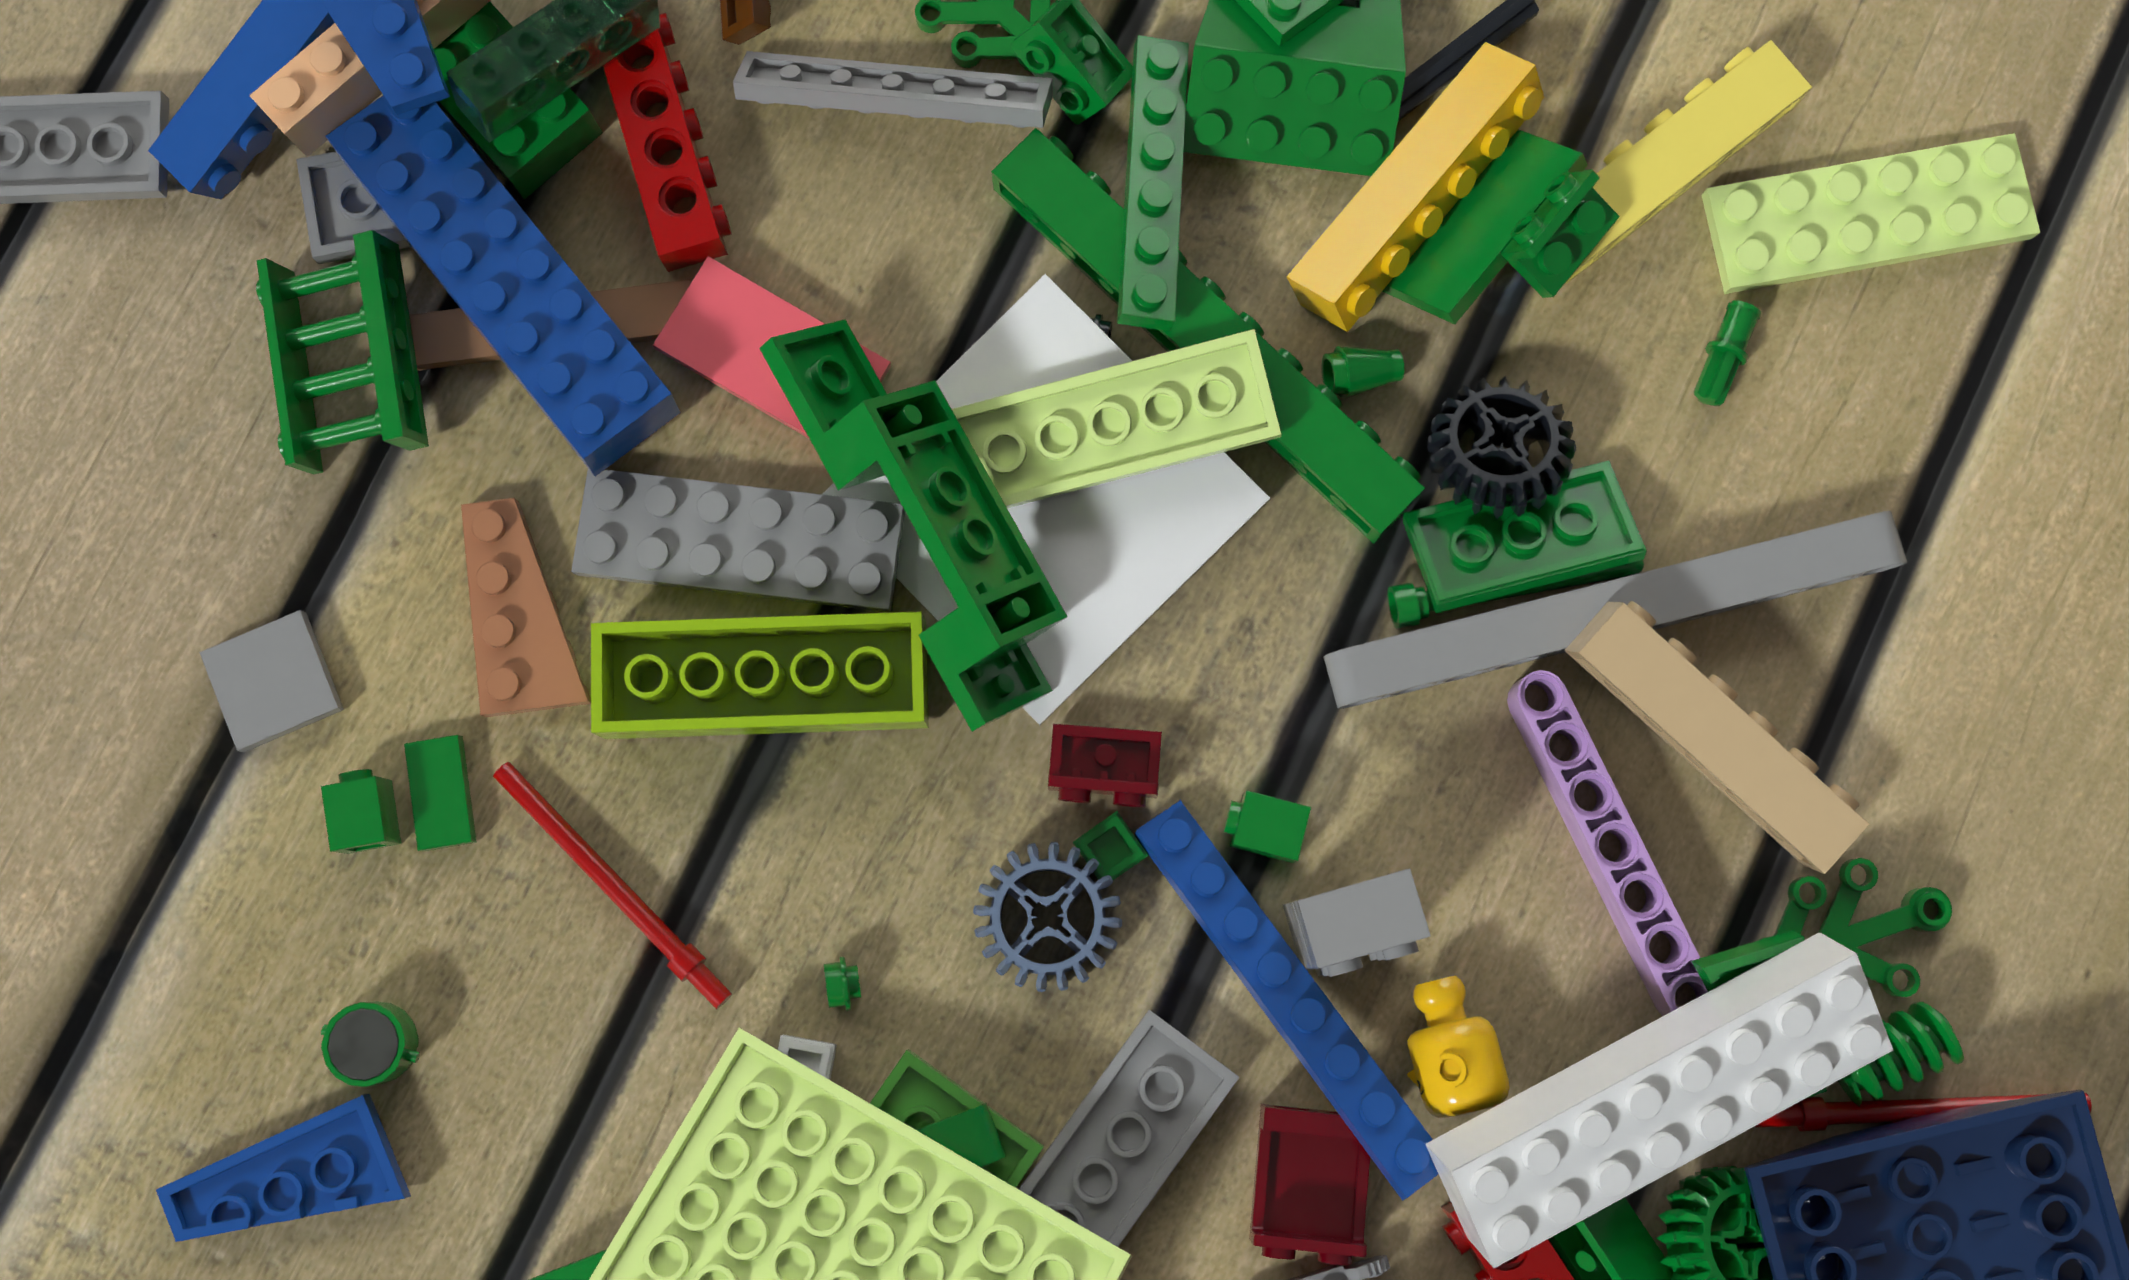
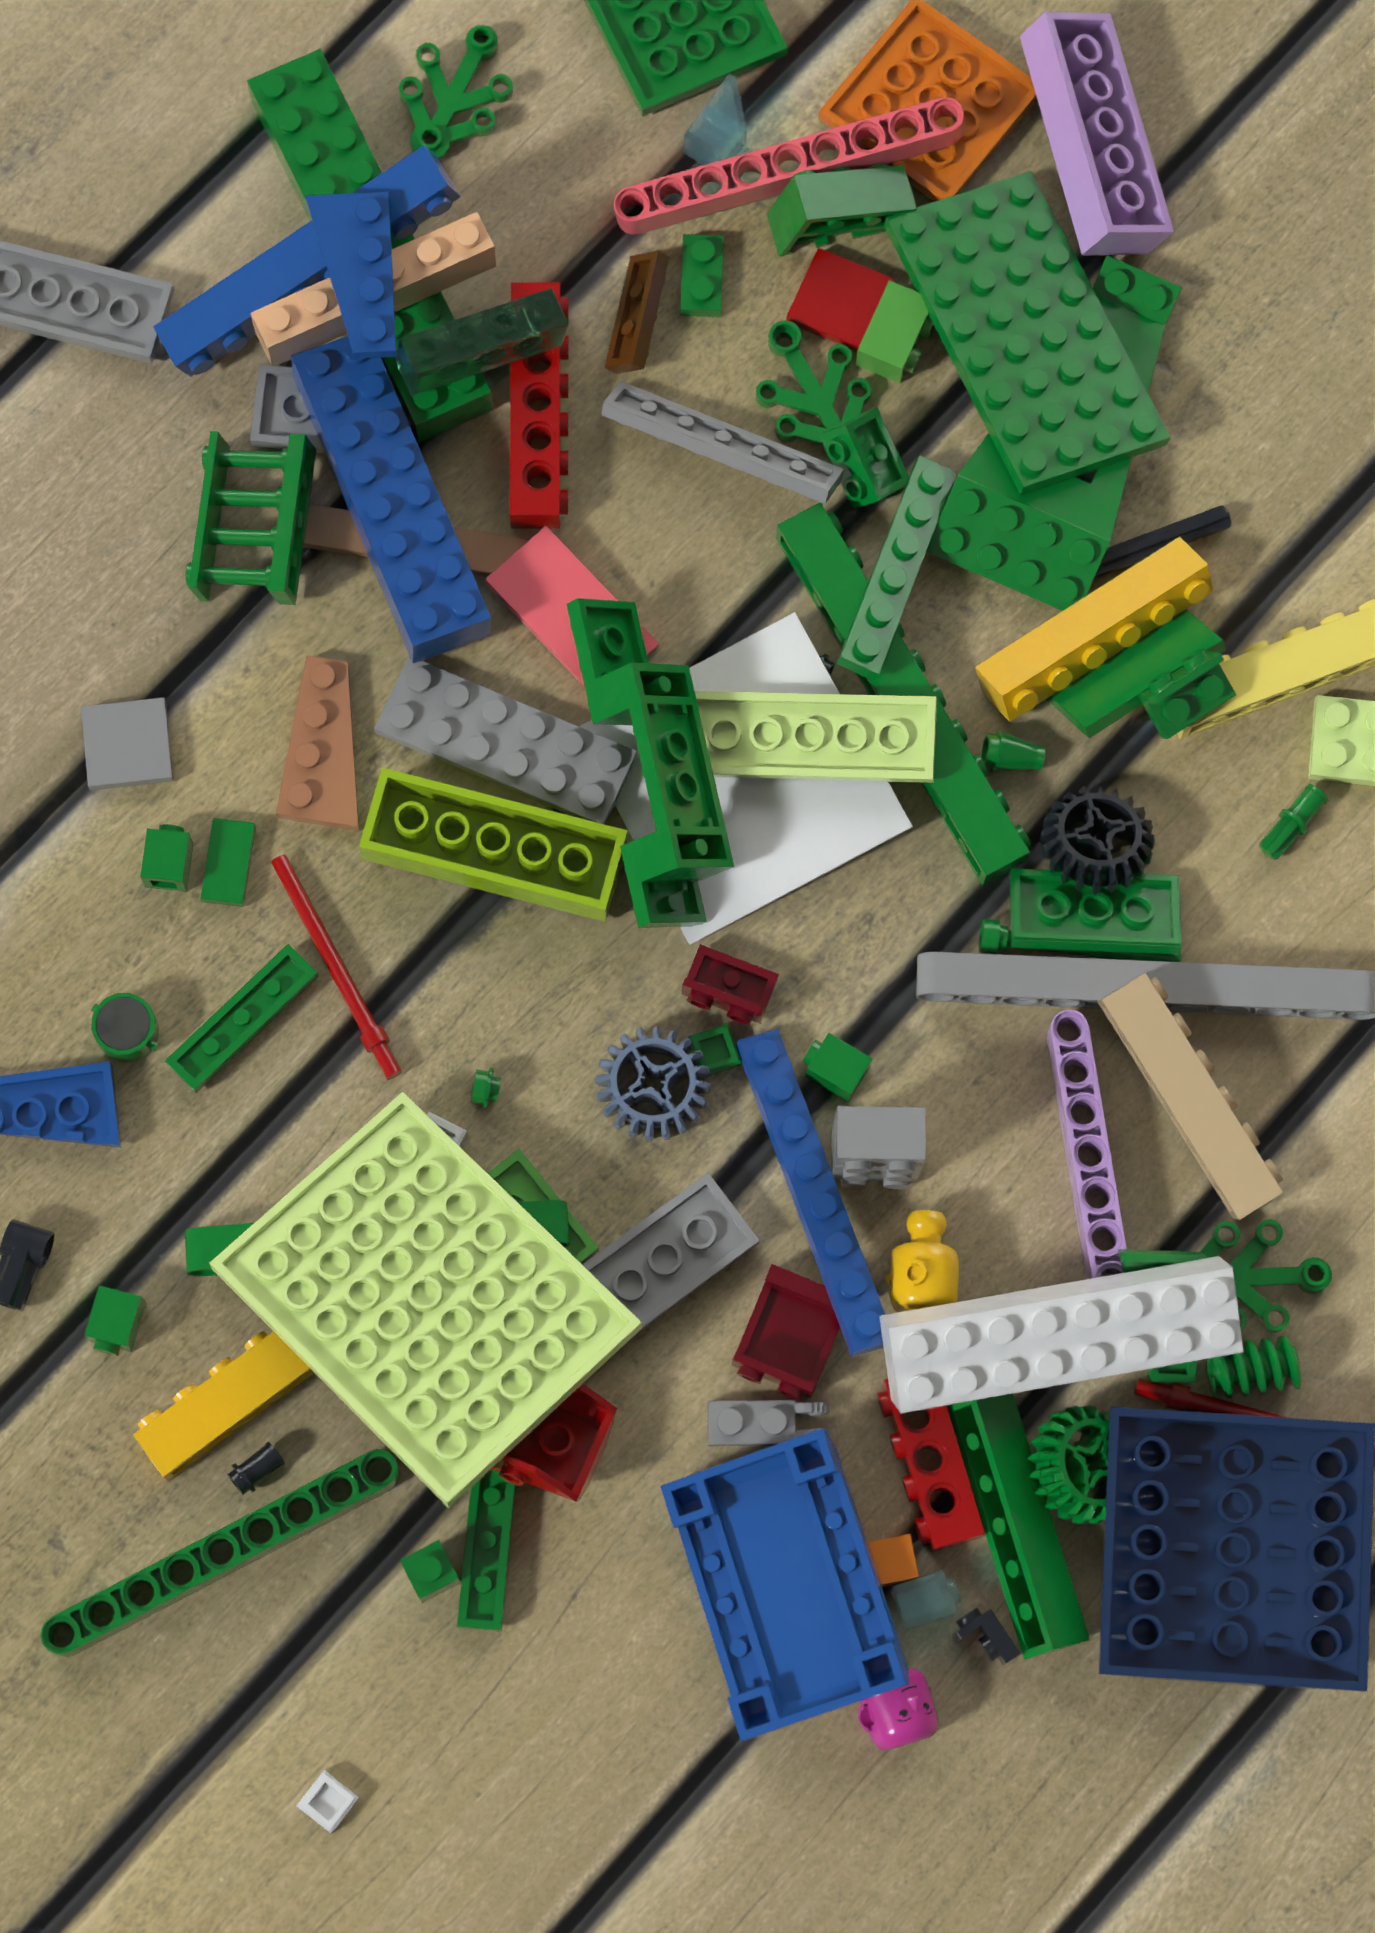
camera: 10 degrees right, 5 degrees down
(512, 988) = (241, 1018): none -> green plate

